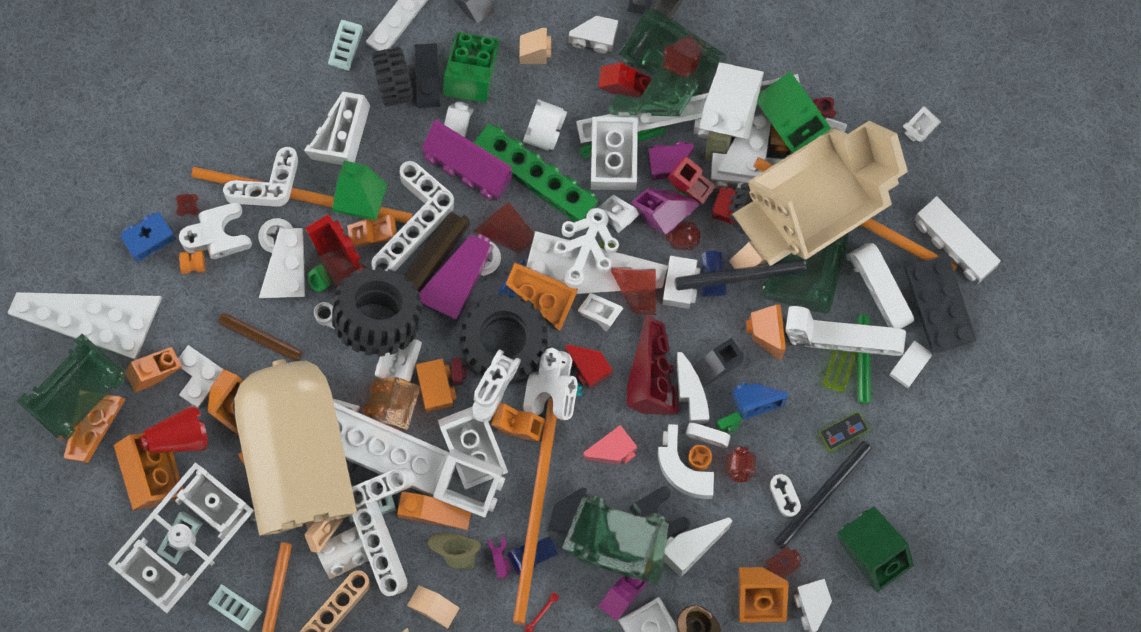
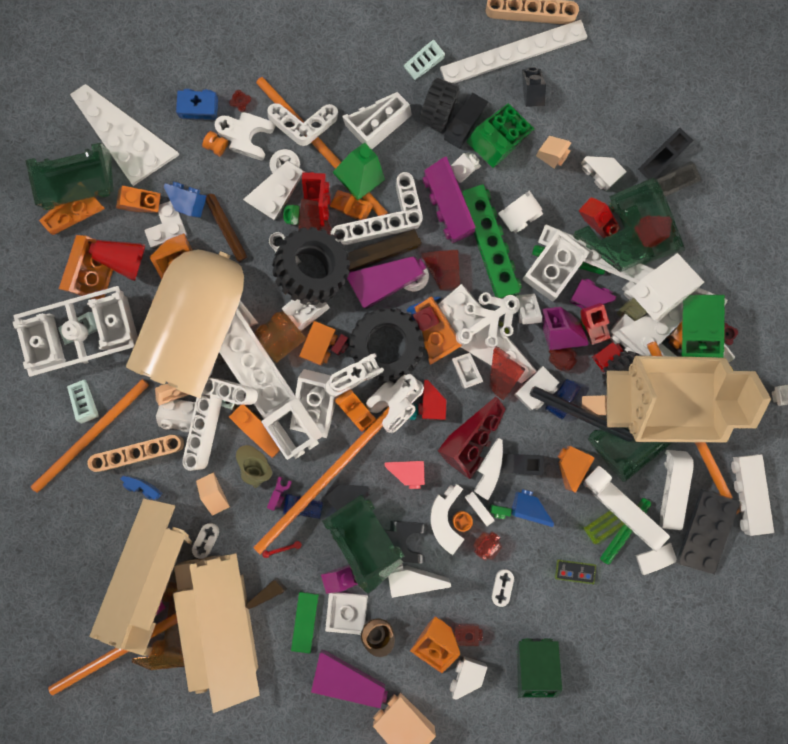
camera: 40 degrees right, 10 degrees up
(203, 336) = (185, 200): none -> slope
(525, 285) = (426, 318): none -> dark red plate
(822, 495) = (529, 605): black axle -> none

